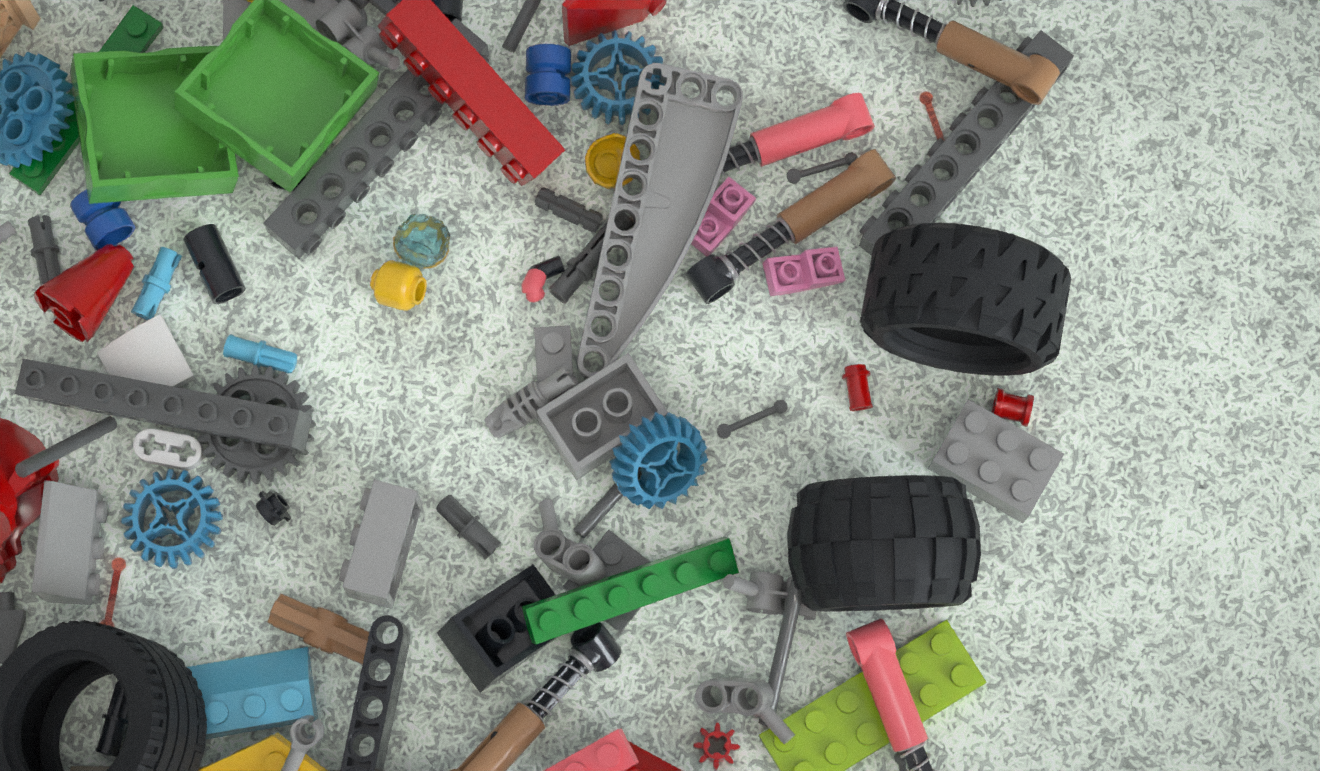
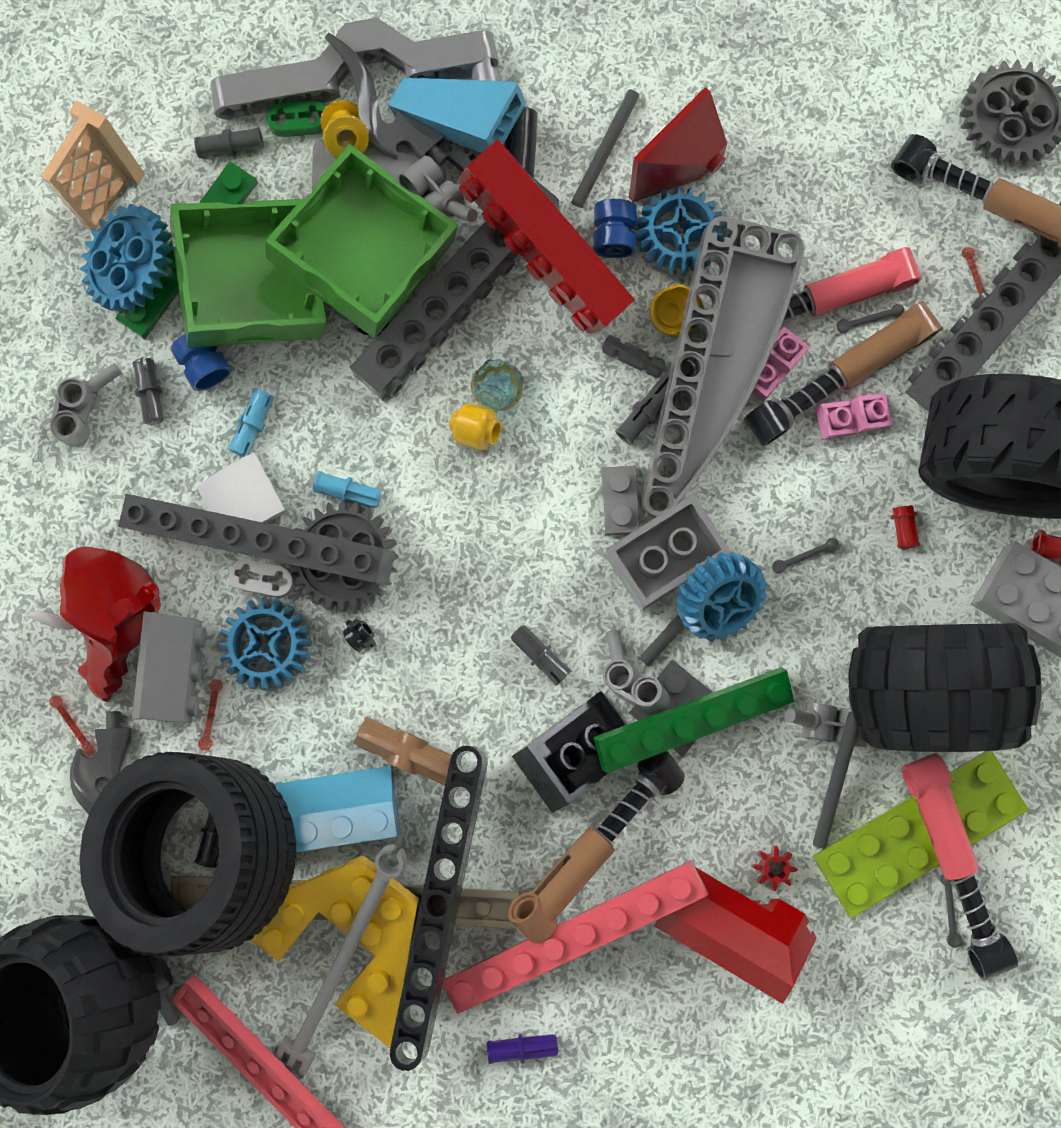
camera: 10 degrees right, 5 degrees up
(65, 447) = (163, 579): dark grey bar -> none
(86, 291) = (186, 429): red cone -> none
(214, 263) = (305, 404): black pin -> none
(381, 543) = (459, 671): light grey brick -> none
(522, 406) = (595, 539): light grey hinge -> none
(537, 276) = (604, 418): arm -> none
(735, 701) = (792, 826): light grey beam -> none

